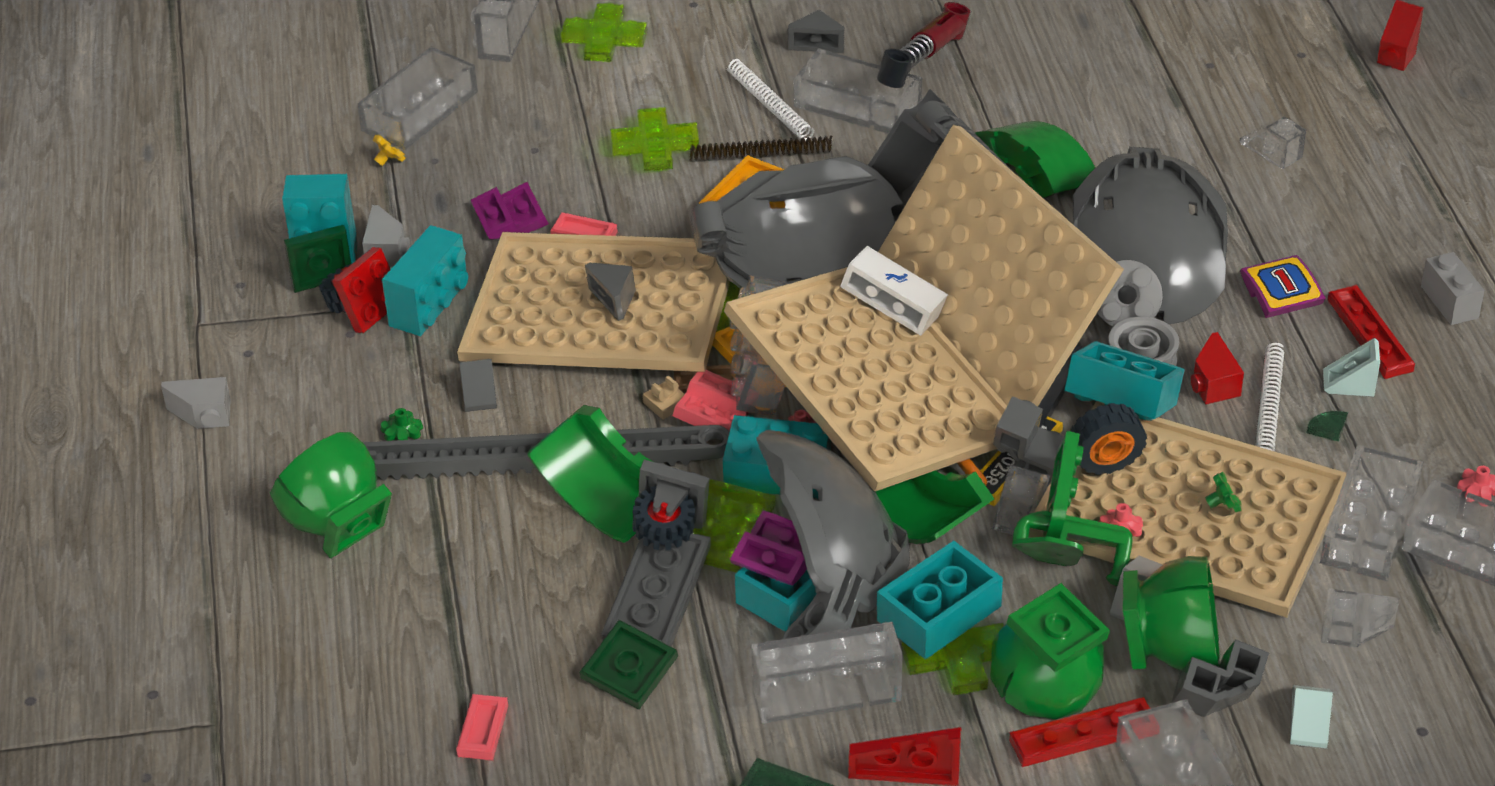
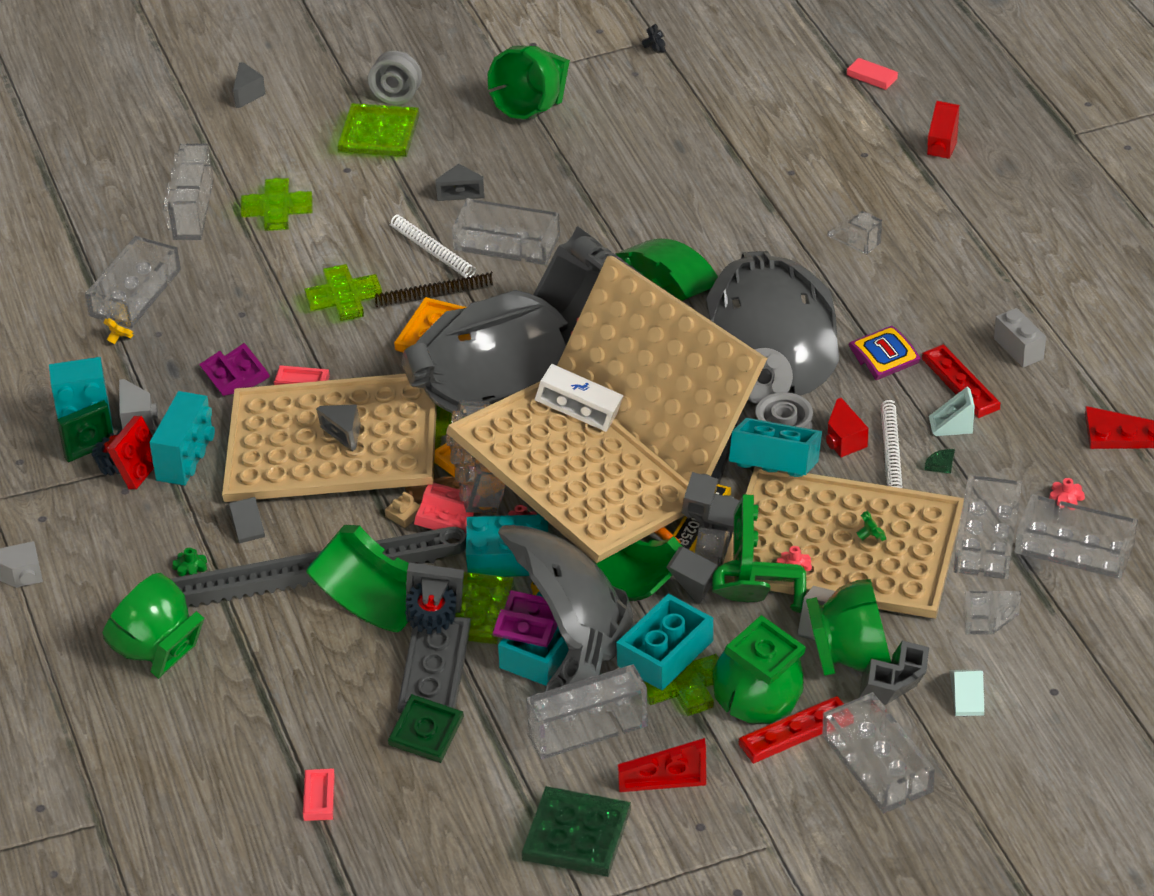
camera: 10 degrees left, 0 degrees up
(925, 43) = (554, 184): piece -> none
(991, 519) = (692, 572): none -> dark grey slope
(1110, 438) = (775, 493): black wheel -> none

